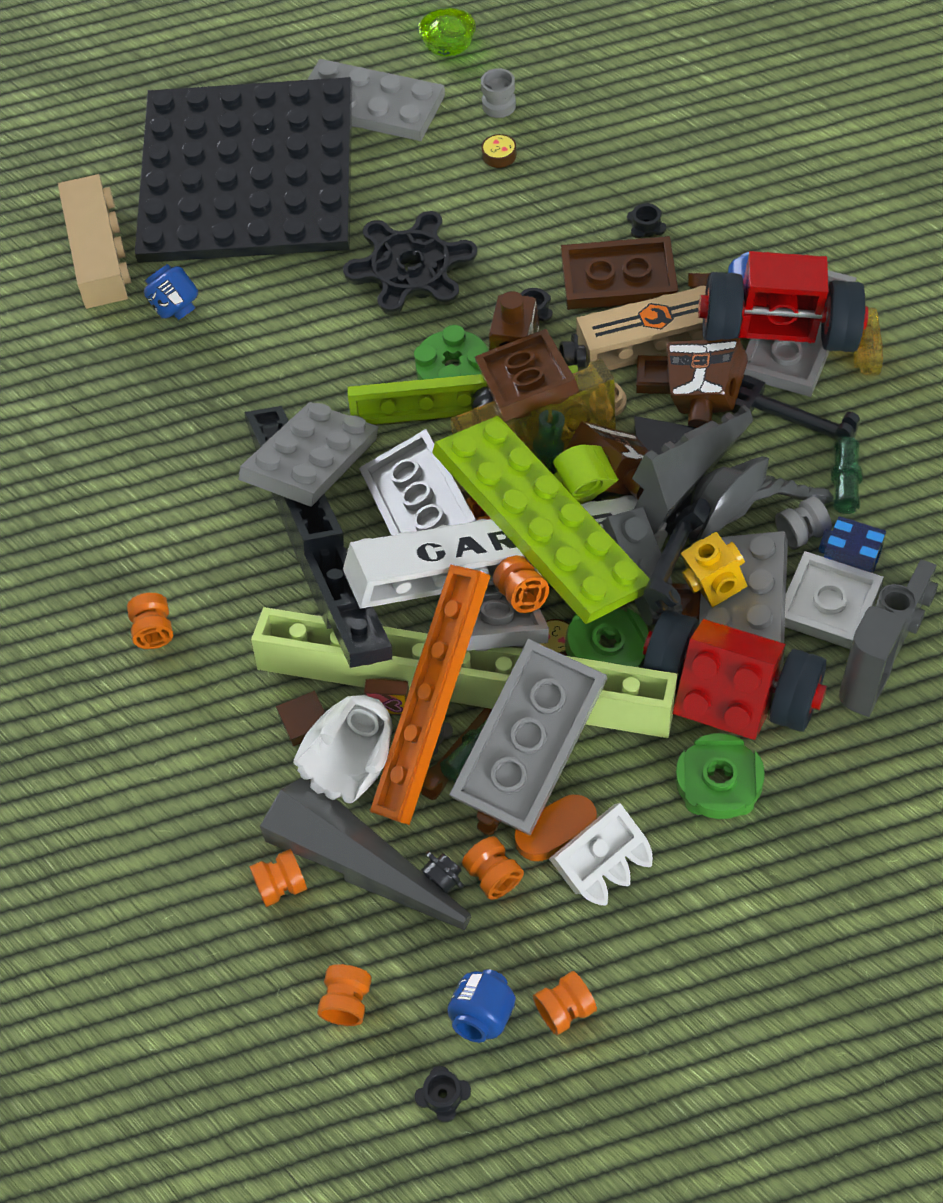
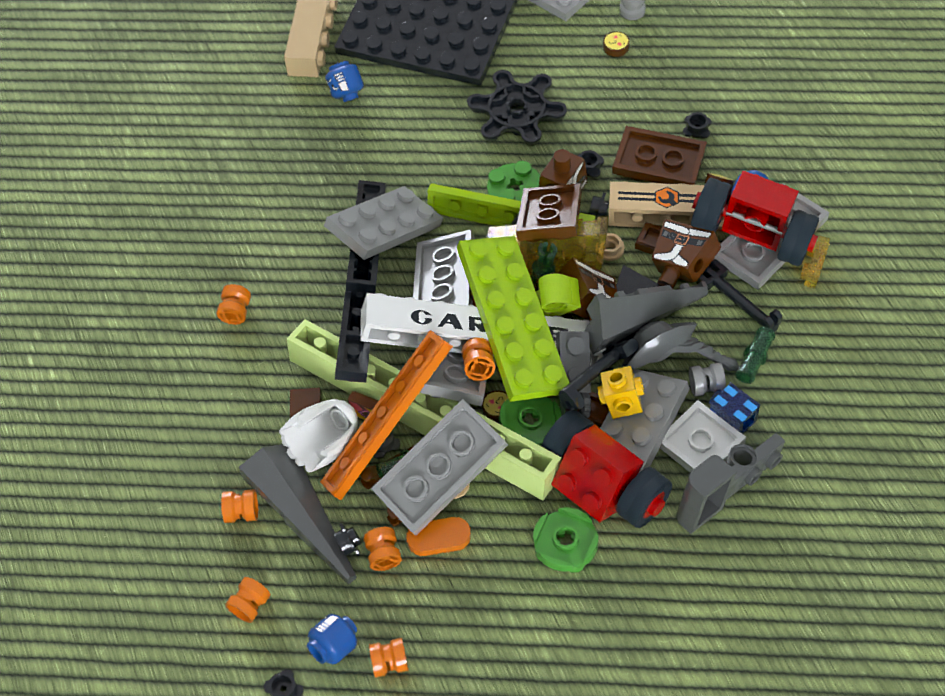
camera: 20 degrees right, 0 degrees up
(602, 851) = (459, 564): white plate -> none

